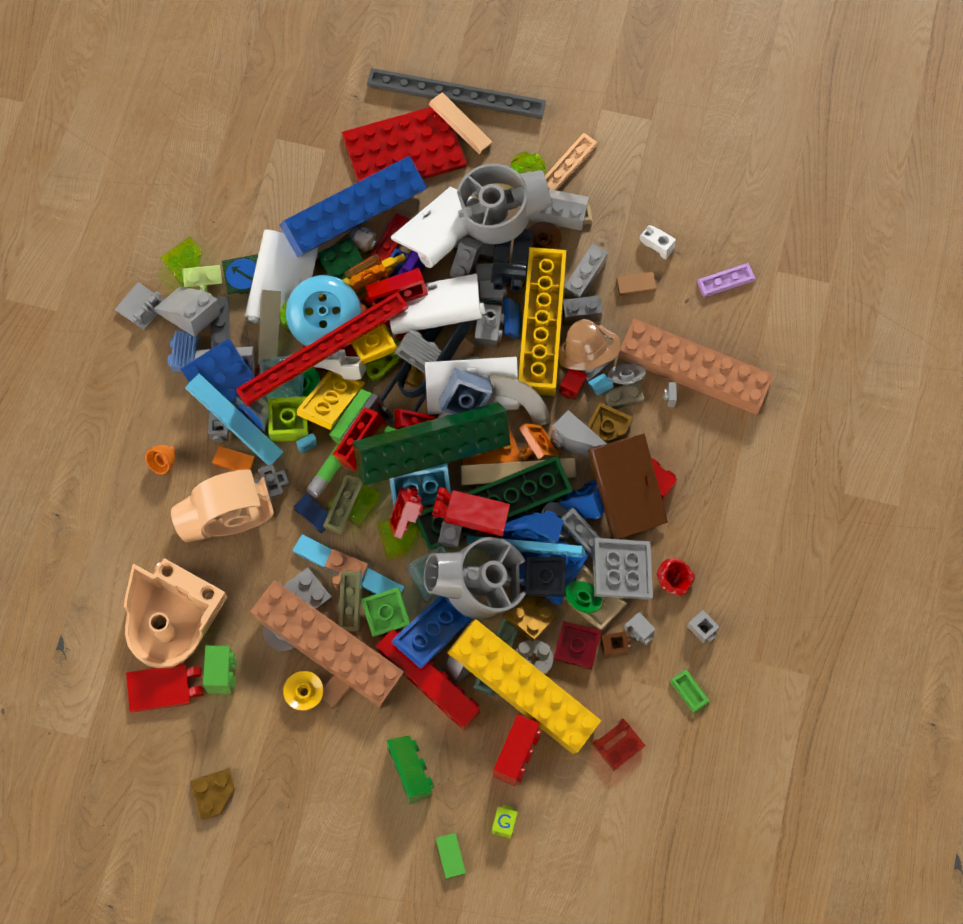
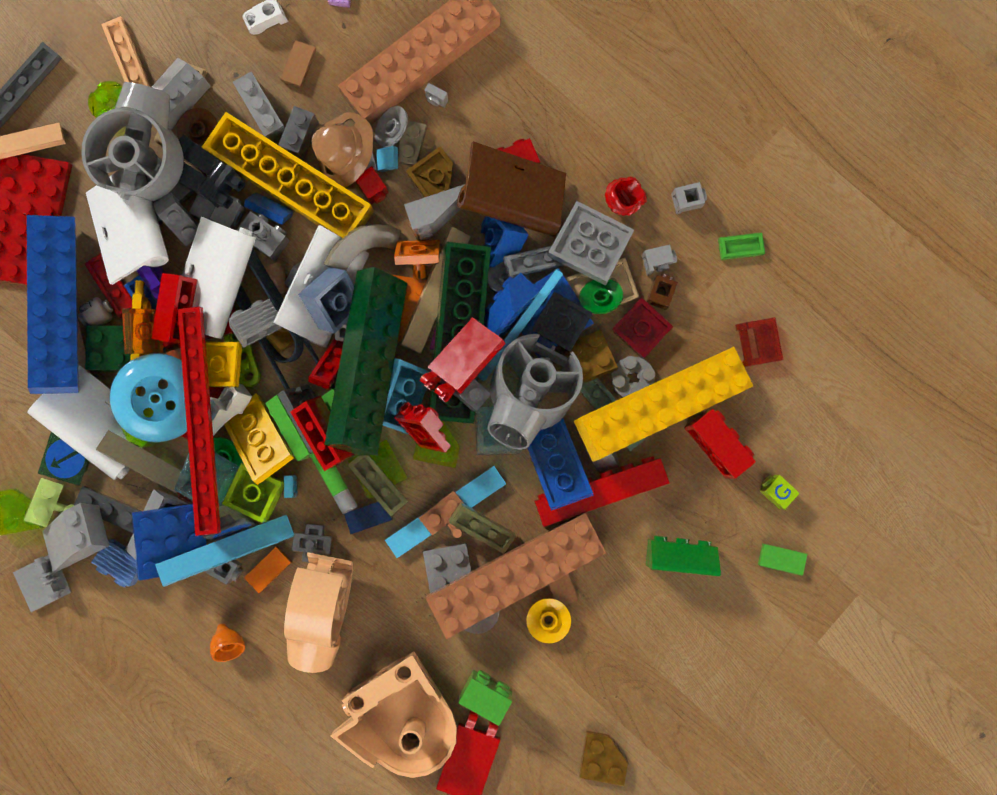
camera: 55 degrees left, 15 degrees up
(385, 612) = (511, 498): bright green plate -> none

